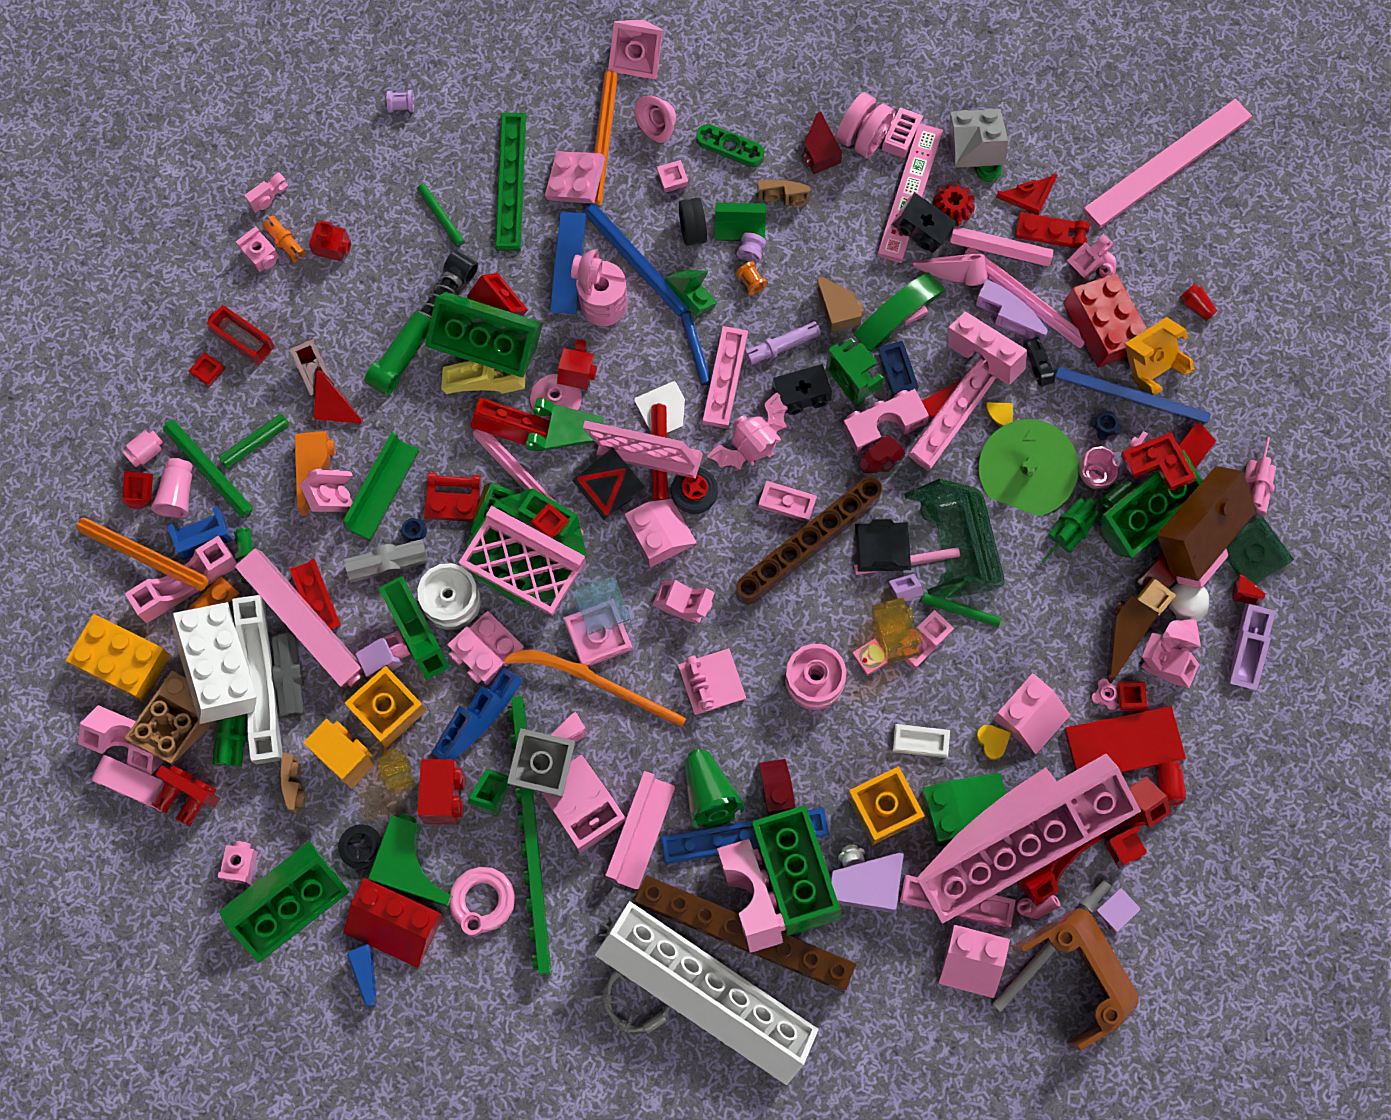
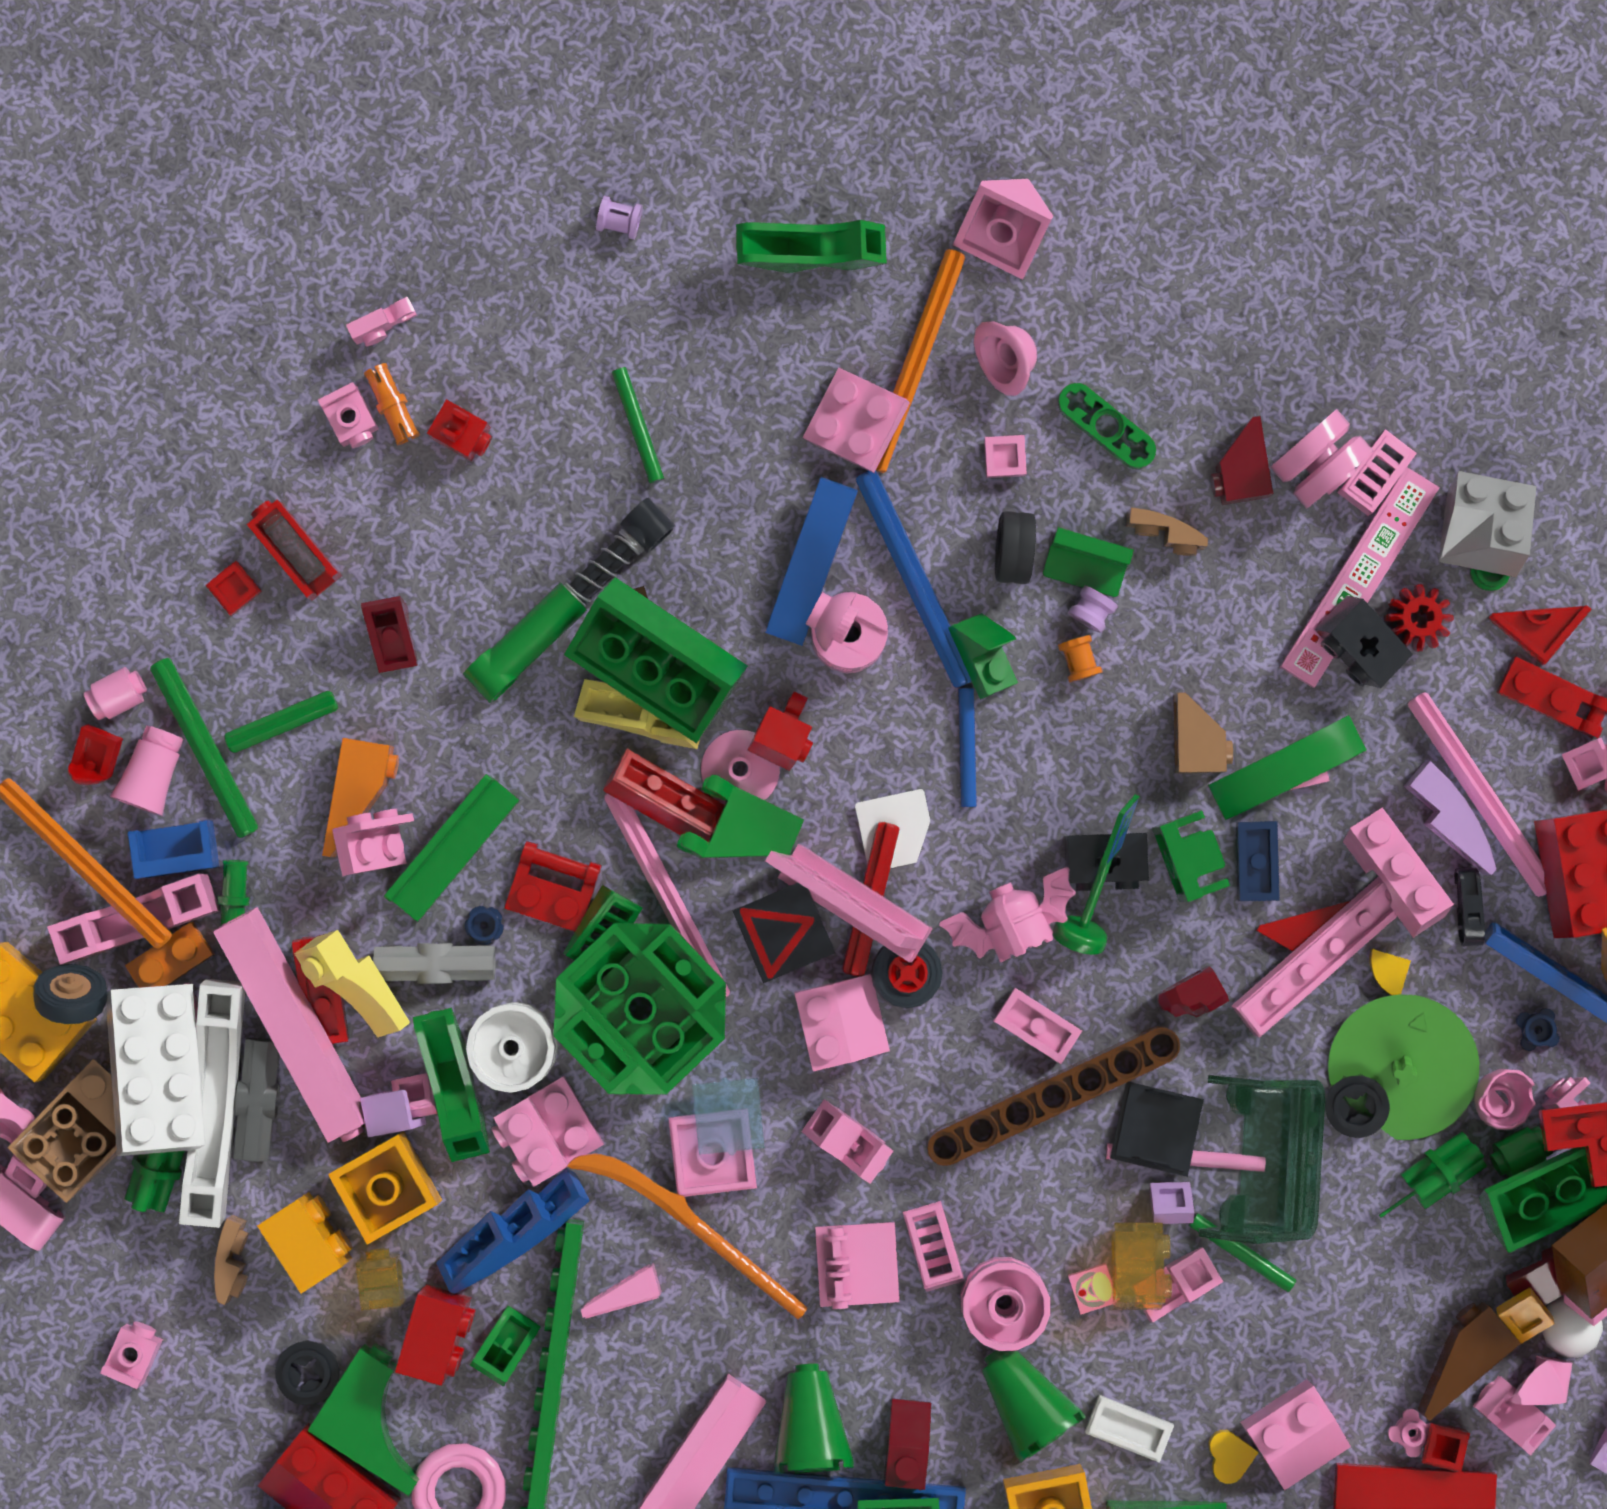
camera: 10 degrees right, 15 degrees up
(147, 628) = (70, 994): none -> black wheel
(177, 781) = (92, 1242): red plate -> none
(283, 902) = (183, 1424): green slope -> none
(331, 403) = (407, 696): red tile -> none
(337, 580) = (332, 964): none -> light yellow slope
(495, 292) = (690, 589): red panel -> none
(510, 182) = (757, 396): green tile -> none
(514, 88) = (807, 246): none -> green arch
(533, 540) = (653, 1010): bright pink fence -> none
(541, 762) = (585, 1340): light grey slope -> none
(550, 521) = (682, 986): red tile -> none
(586, 807) = (627, 1396): bright pink slope -> none
(725, 377) = (999, 807): bright pink plate -> none
(771, 675) = (944, 1279): none -> bright pink slope
(774, 346) = (1098, 774): lavender pin -> none
(800, 435) = (1080, 932): none -> green piece
(850, 738) = (1028, 1403): none -> green cone
(904, 410) = (1179, 944): bright pink arch -> none
(959, 268) = (1401, 725): bright pink piece -> none
(1000, 487) = (1359, 1123): none -> black gear
(1002, 246) = (1471, 706): bright pink tile -> none

